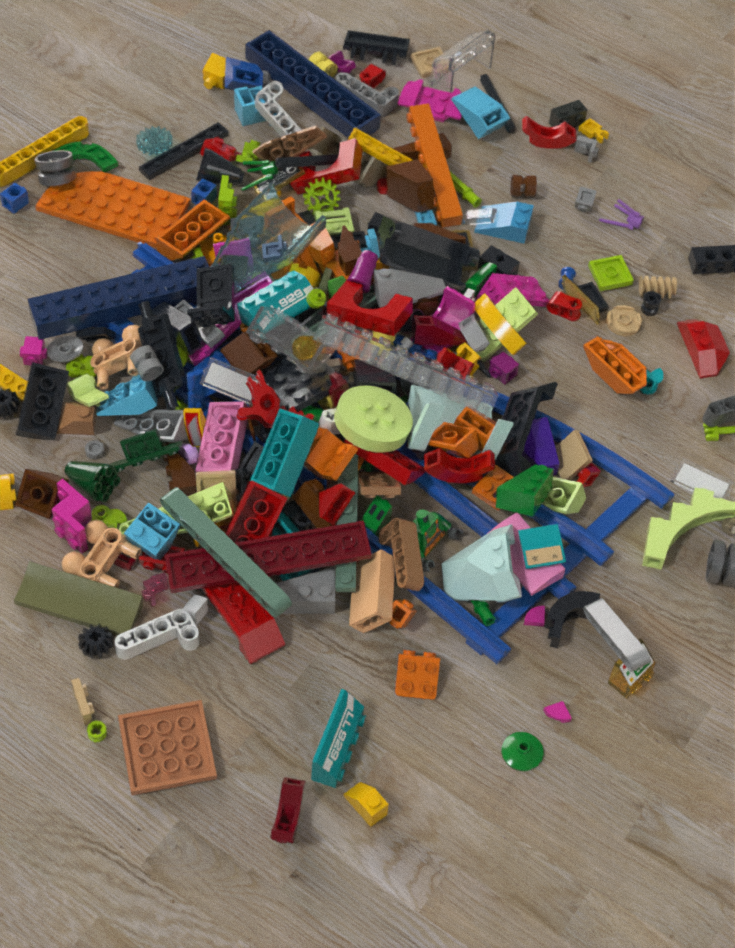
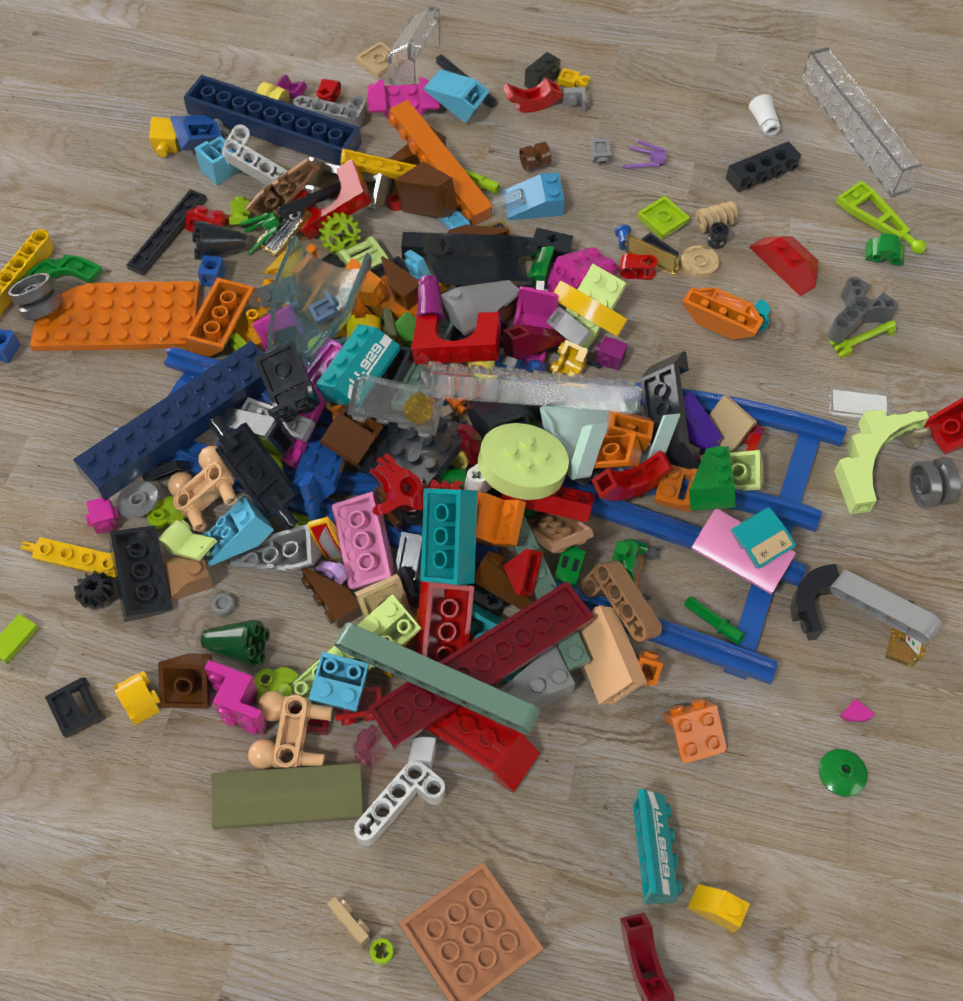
camera: 20 degrees left, 5 degrees up
(95, 641) = (334, 831): black gear -> none
(144, 447) = (281, 586): dark green bracket -> none
(146, 363) = (242, 485): light grey wheel -> none
(154, 140) = (131, 230): clear light blue gear -> none
(227, 200) = (242, 268): lime plate -> none
(227, 380) = (345, 474): clear piece -> none
(316, 298) = (397, 347): lime tile -> none
(376, 45) = (317, 58): black hinge -> none
(450, 359) = (567, 365): red bracket -> none
(483, 570) = (710, 584): light aqua wedge -> none
(535, 616) = (779, 613): dark pink tile -> none

